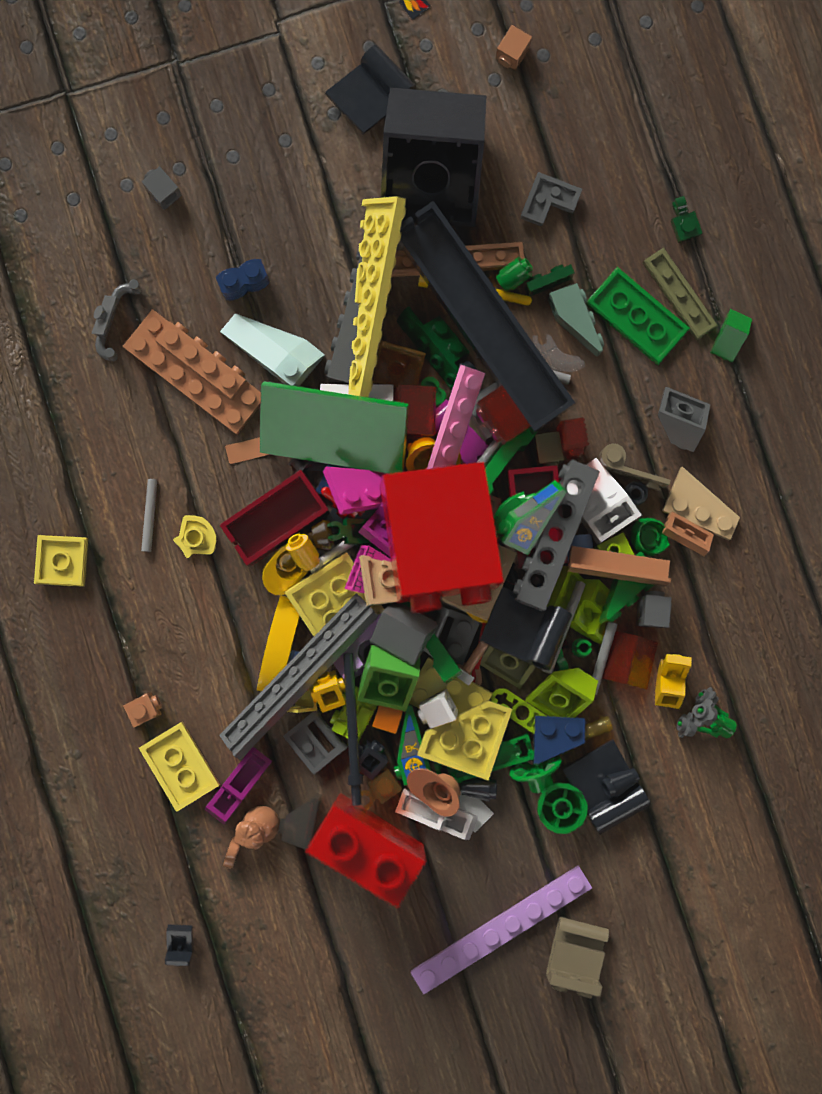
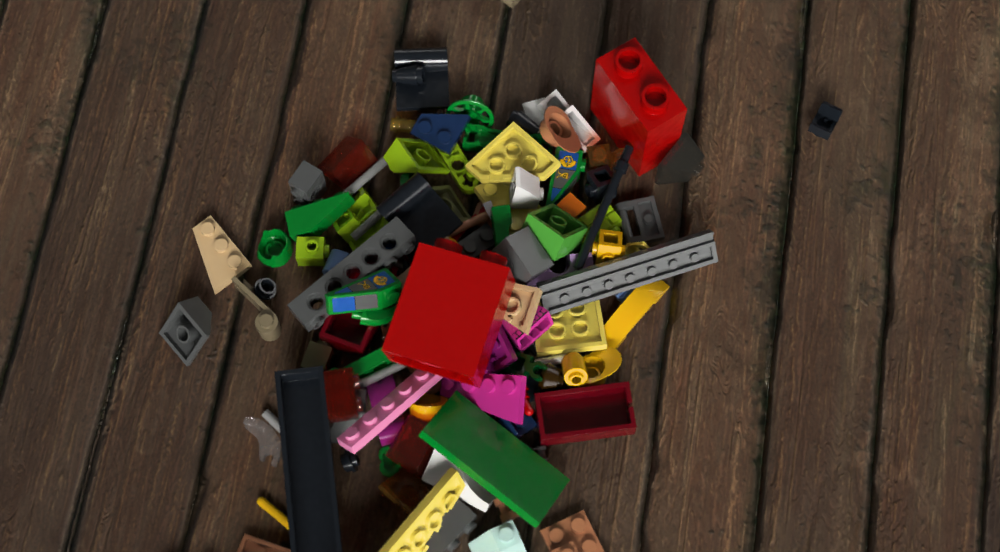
camera: 150 degrees left, 15 degrees down
(61, 560) = (792, 474): light yellow plate -> none
(143, 709) = (774, 315): nougat bracket -> none
(149, 515) = (695, 477): light grey bar -> none
(179, 766) = (763, 255): light yellow plate -> none
(196, 536) = (661, 437): light yellow animal -> none
(231, 854) = (749, 169): nougat tile -> none
(238, 785) = (722, 215): magenta slope -> none
(244, 451) = (581, 493): nougat sticker -> none
(257, 827) = (720, 177): nougat hair -> none
(437, 341) = (362, 499): dark green bracket -> none
(500, 929) = (561, 19): lavender plate -> none
(515, 274) = (258, 526): green brick -> none
(541, 283) = (221, 506): dark green plate -> none
(562, 808) = (465, 75): green cylinder -> none
(572, 314) = (228, 470): sand green slope -> none
(573, 437) = (290, 351): clear red brick -> none
(576, 644) = (381, 189): green pin -> none
(607, 507) = (290, 280): white slope -> none
(619, 566) = (314, 227): nougat panel -> none
(637, 316) = (173, 439): green tile -> none
(671, 680) = (325, 129): yellow brick -> none
(680, 293) = (125, 439): olive tile -> none
(685, 224) = (81, 498): dark green plate -> none
(688, 533) = (245, 231): nougat tile -> none
(706, 713) = (312, 85): dark grey plant -> none
(731, 335) = (103, 380): green slope -> none

